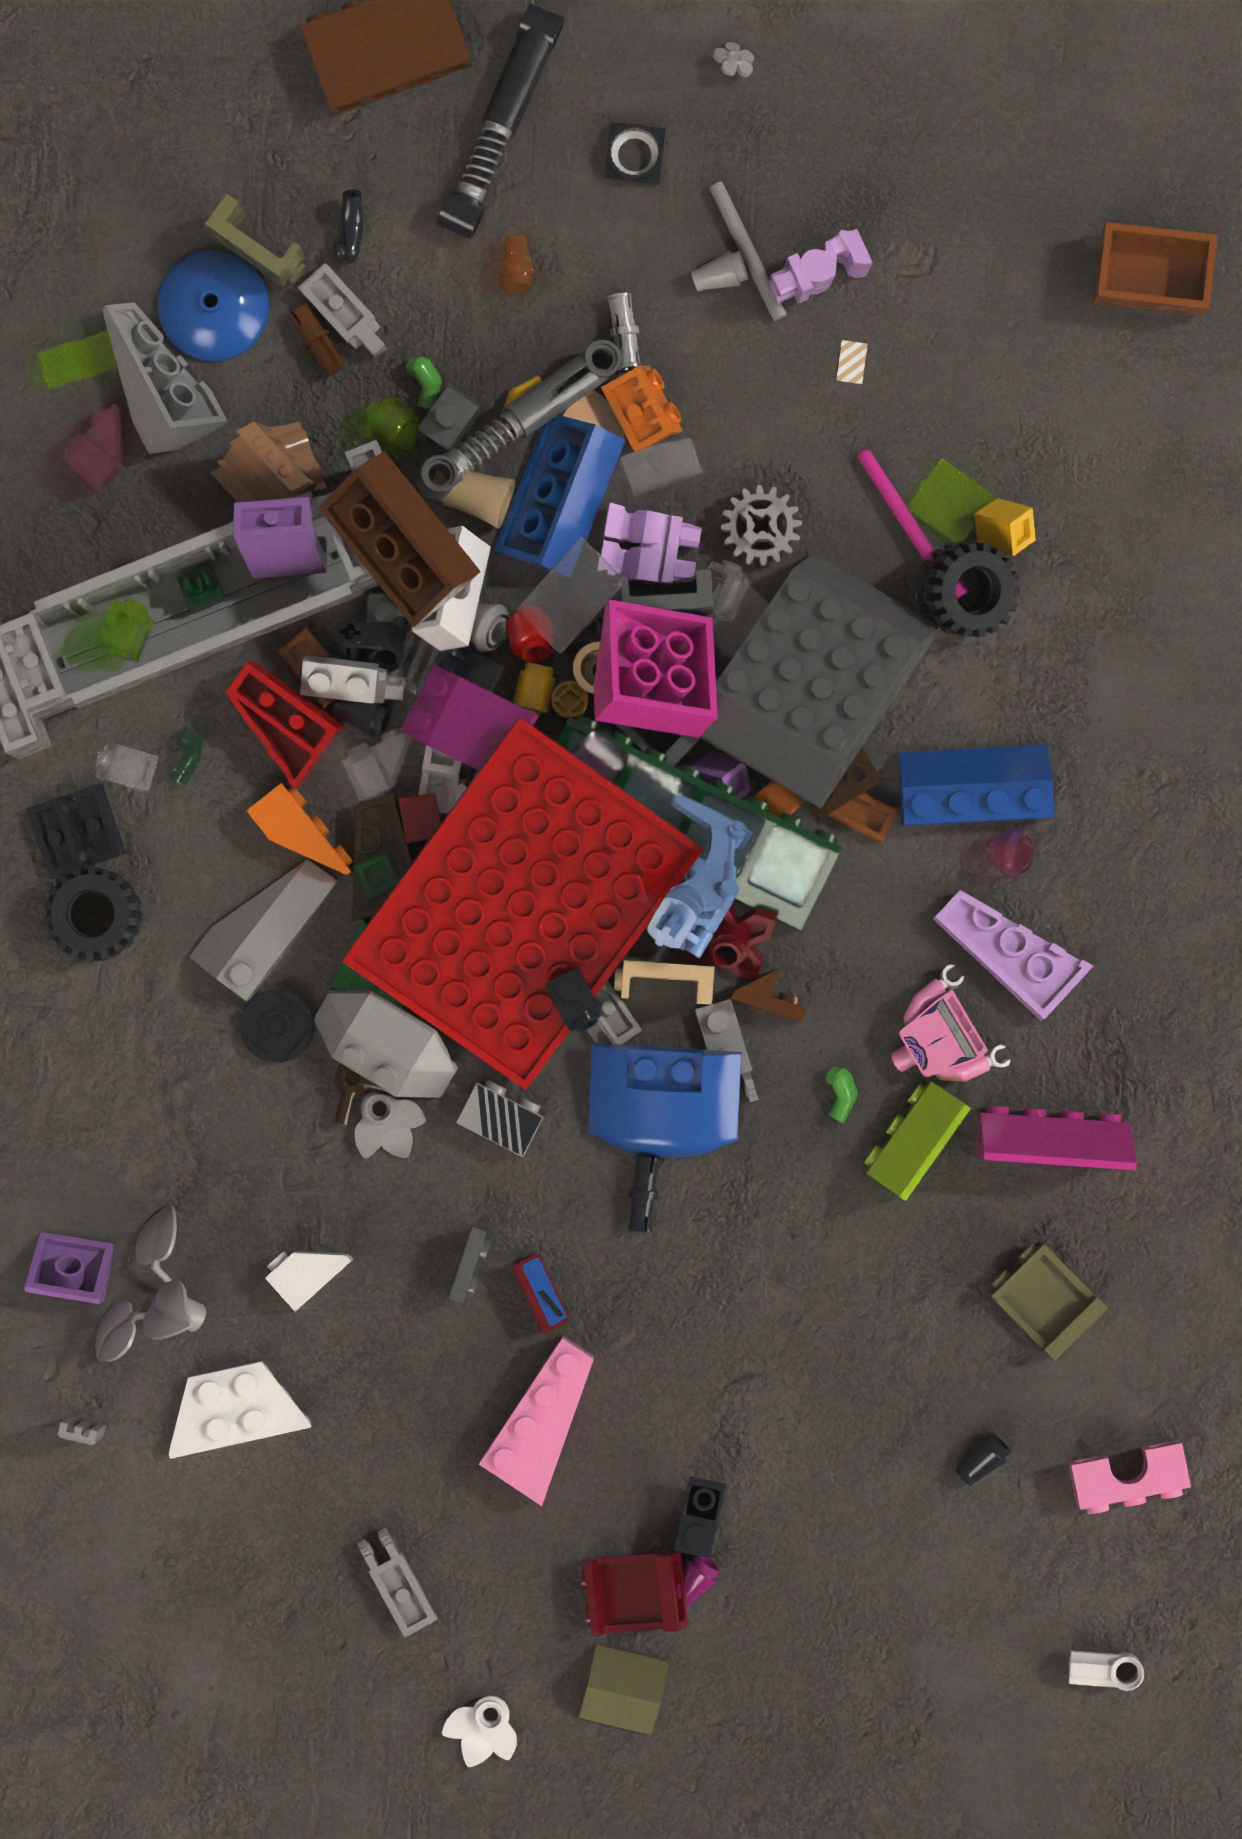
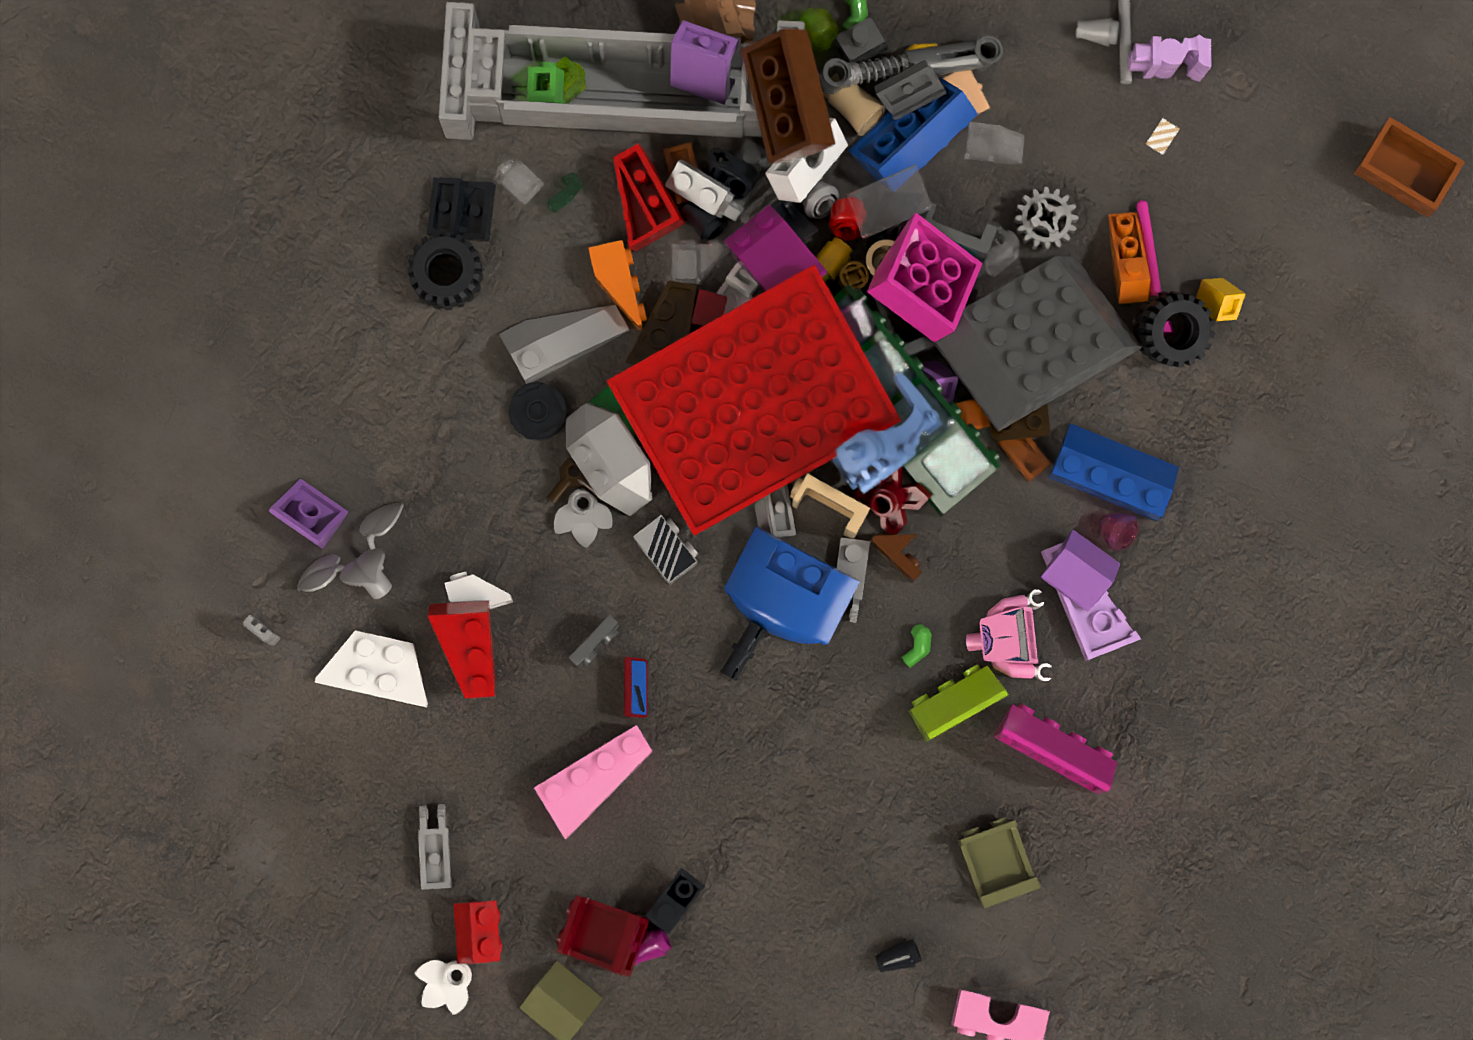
camera: 20 degrees right, 5 degrees down
(100, 656) = (537, 83): none -> bright green brick
(201, 588) = (630, 79): dark green tile -> none
(324, 1336) = (467, 643): none -> red wedge
(377, 875) = (658, 335): dark green tile -> none
(491, 1656) = (477, 932): none -> red brick
(533, 450) = (910, 89): none -> dark grey plate
(575, 1000) = (759, 486): black bracket -> none
(624, 330) = (1012, 40): light grey pin -> none
(642, 407) = (1000, 97): orange bracket -> none
(657, 548) = (964, 196): lavender hips -> none
(877, 527) = (1128, 258): none -> orange slope
(949, 501) = (1187, 264): clear neon green piece -> none
(989, 920) = (1081, 571): none -> medium lavender slope

